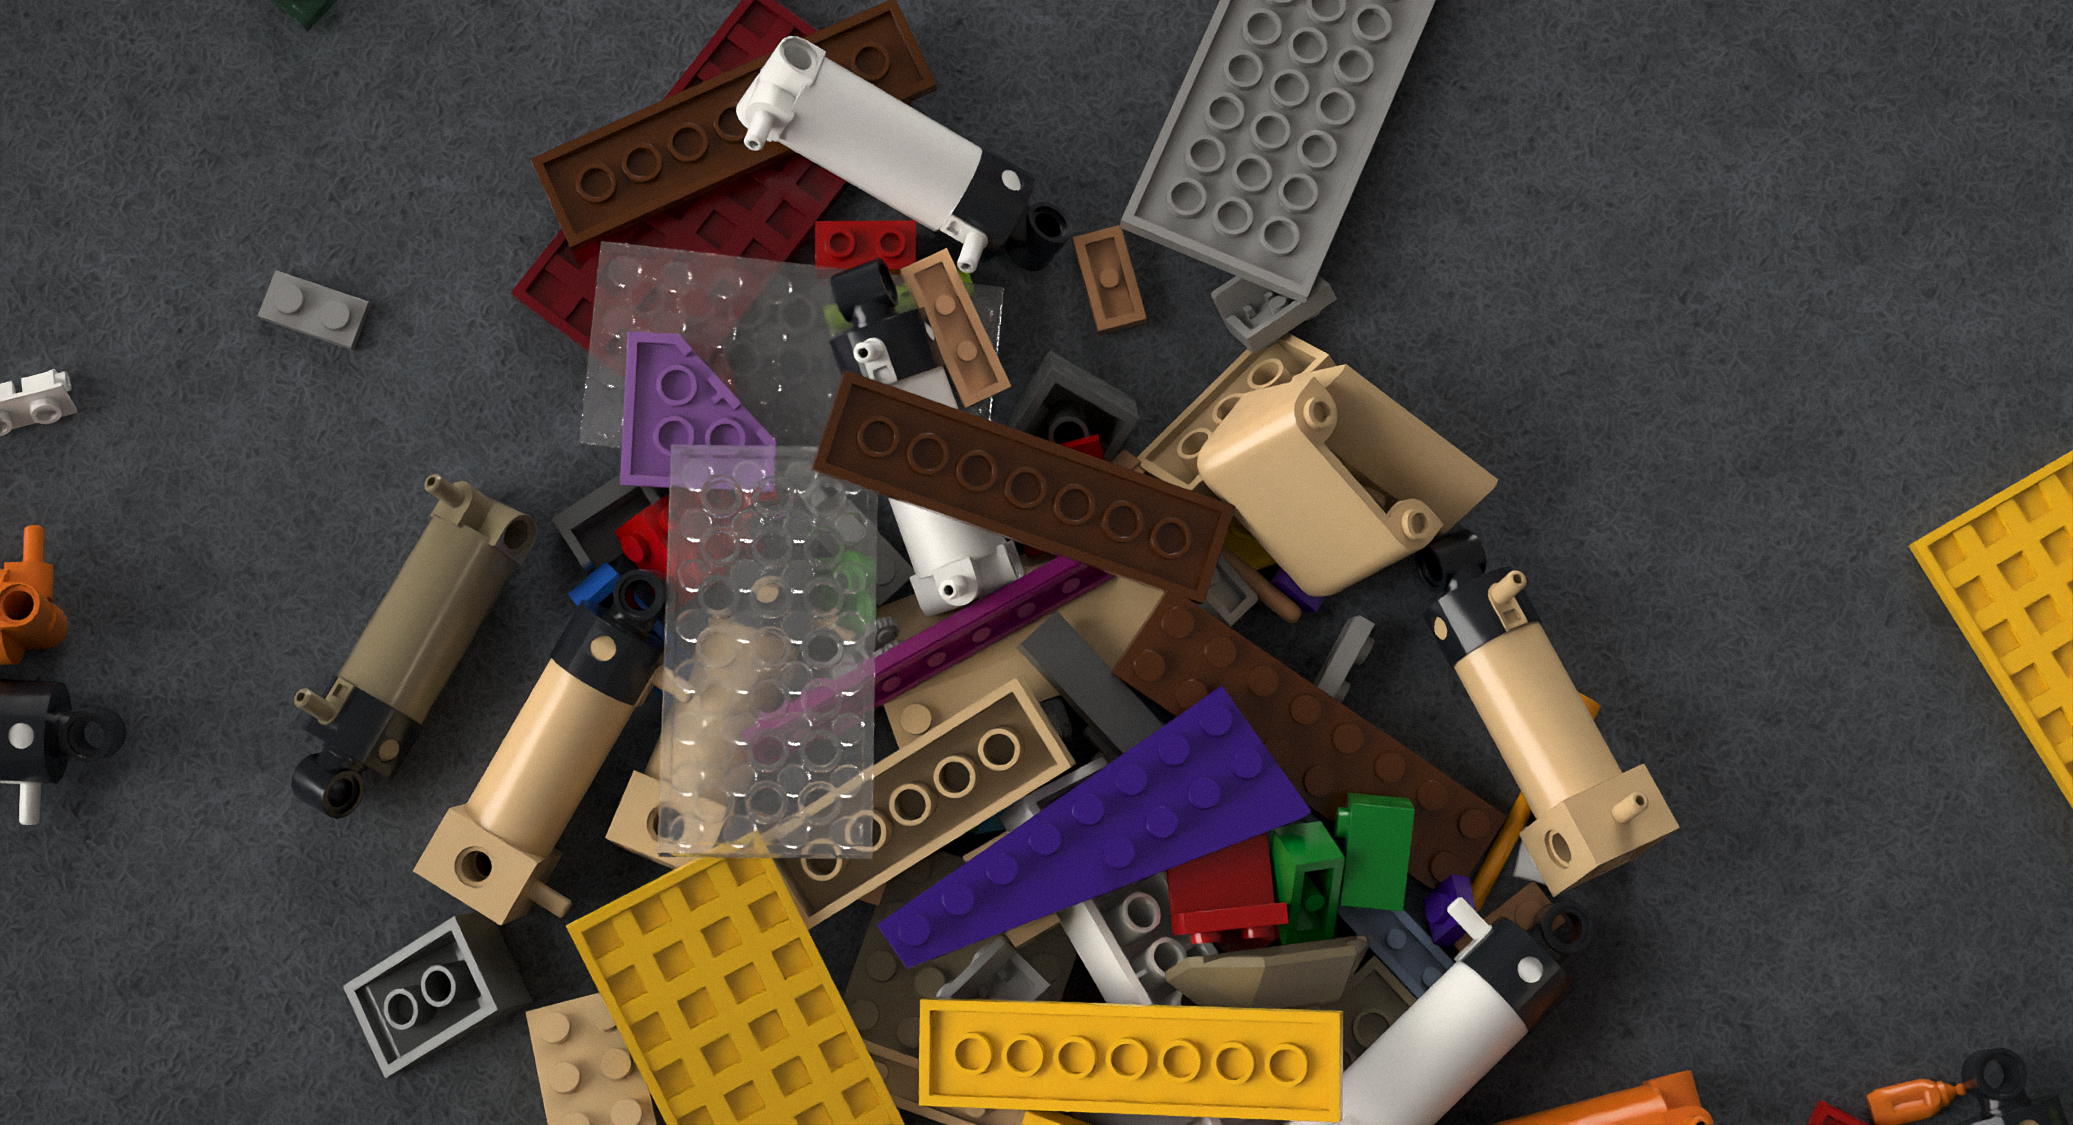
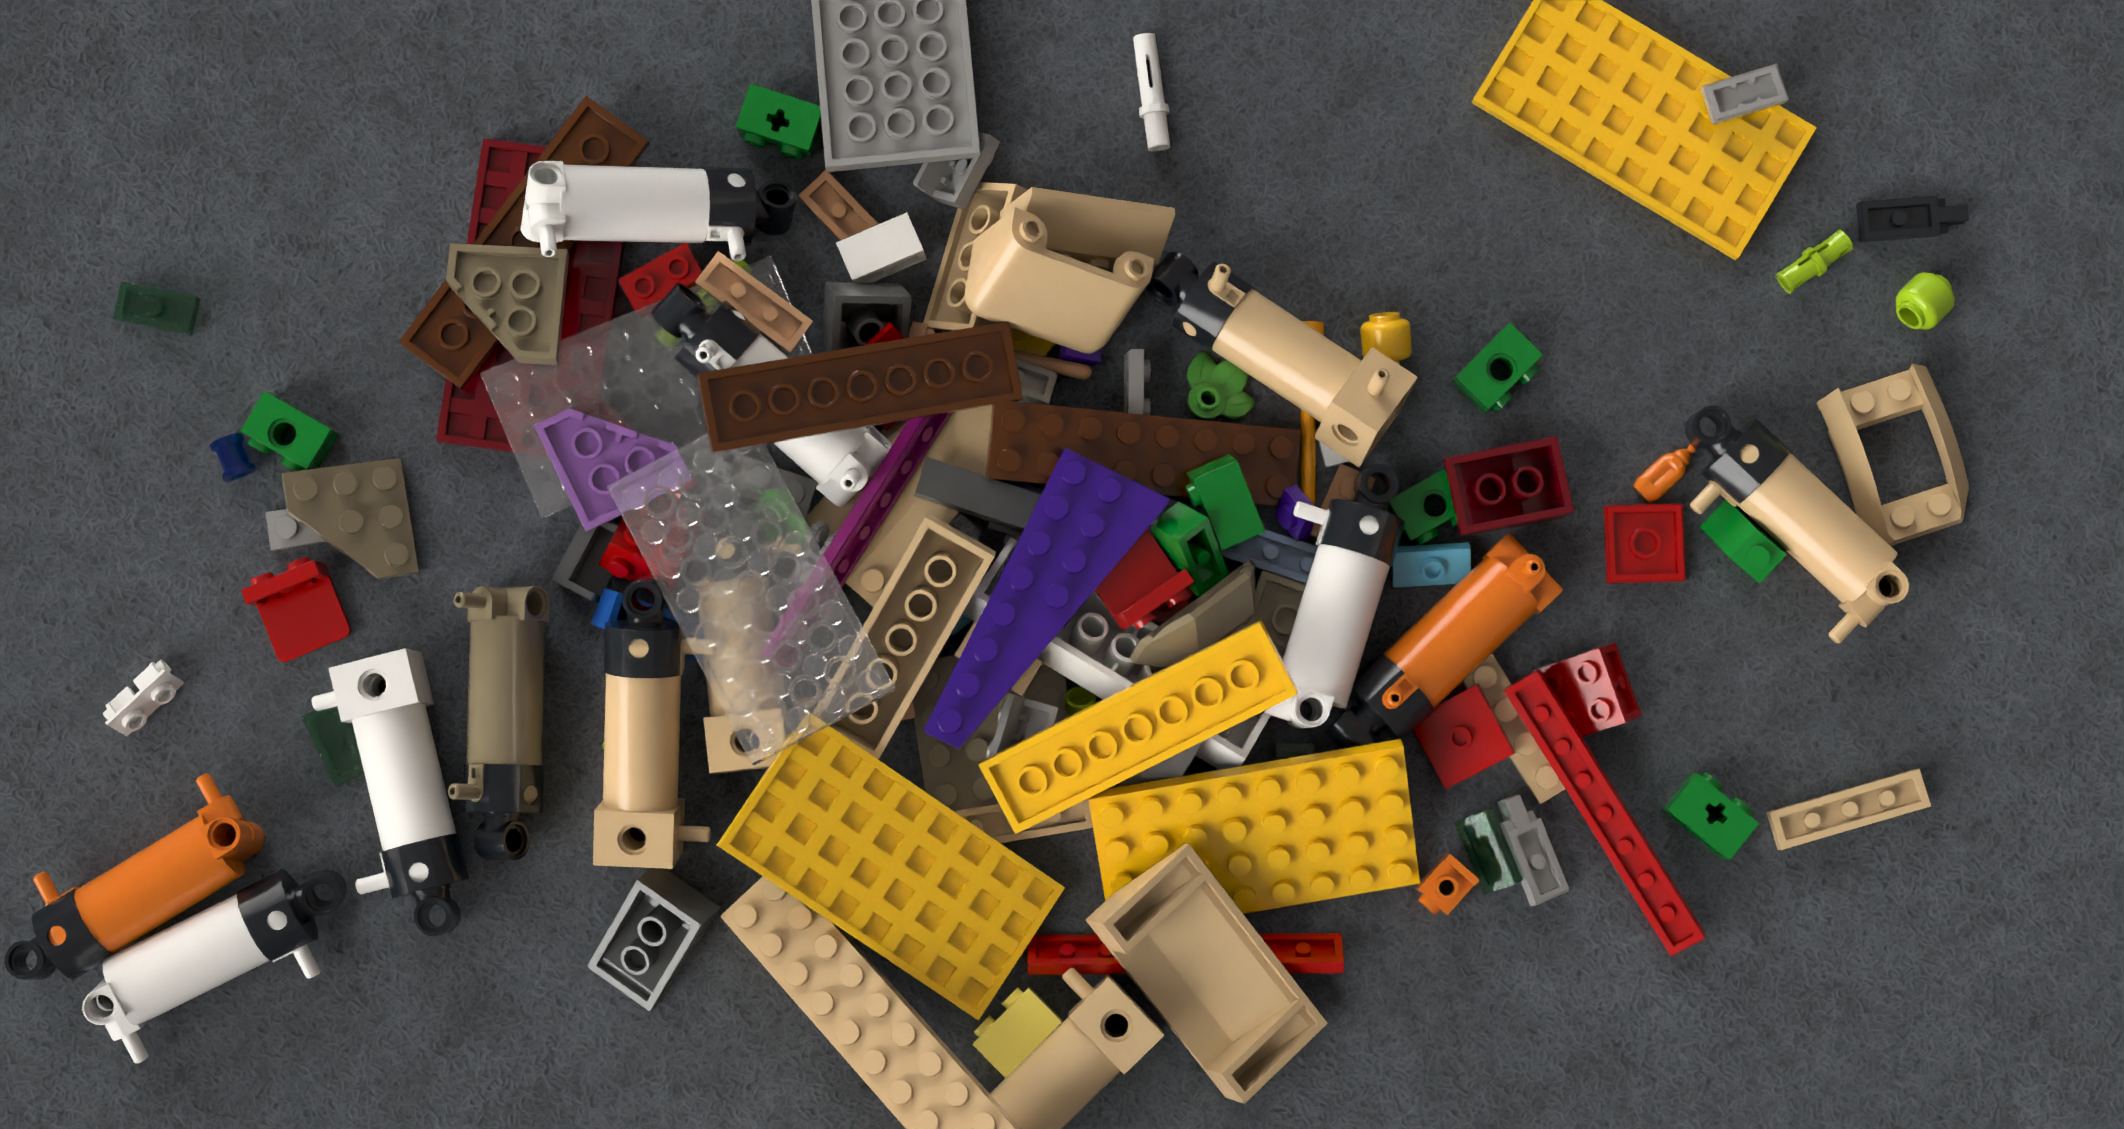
camera: 25 degrees left, 5 degrees up
(207, 573) = (335, 744): none -> clear green plate
(251, 397) = (298, 608): none -> red bracket
(255, 656) = (403, 781): none -> white piece
(275, 189) = (233, 457): none -> clear blue bush
(342, 169) = (269, 421): none -> green brick
(377, 326) = (358, 512): none -> dark tan plate
(688, 175) = (514, 295): none -> dark tan plate
(1078, 988) = (1078, 699): none -> lime hinge
(1091, 118) = (764, 106): none -> green brick
(1134, 349) = (881, 250): none -> white hinge
(1444, 715) = (1222, 384): none -> bright green plate
(1535, 354) = (1152, 98): none -> white pin
(1577, 1057) = (1431, 564): none -> medium azure plate
(1647, 981) = (1410, 508): none -> green brick
(1669, 760) = (1388, 335): none -> yellow head
(1719, 1015) = (1509, 486): none -> dark red slope
(1803, 854) = (1507, 348): none -> green brick

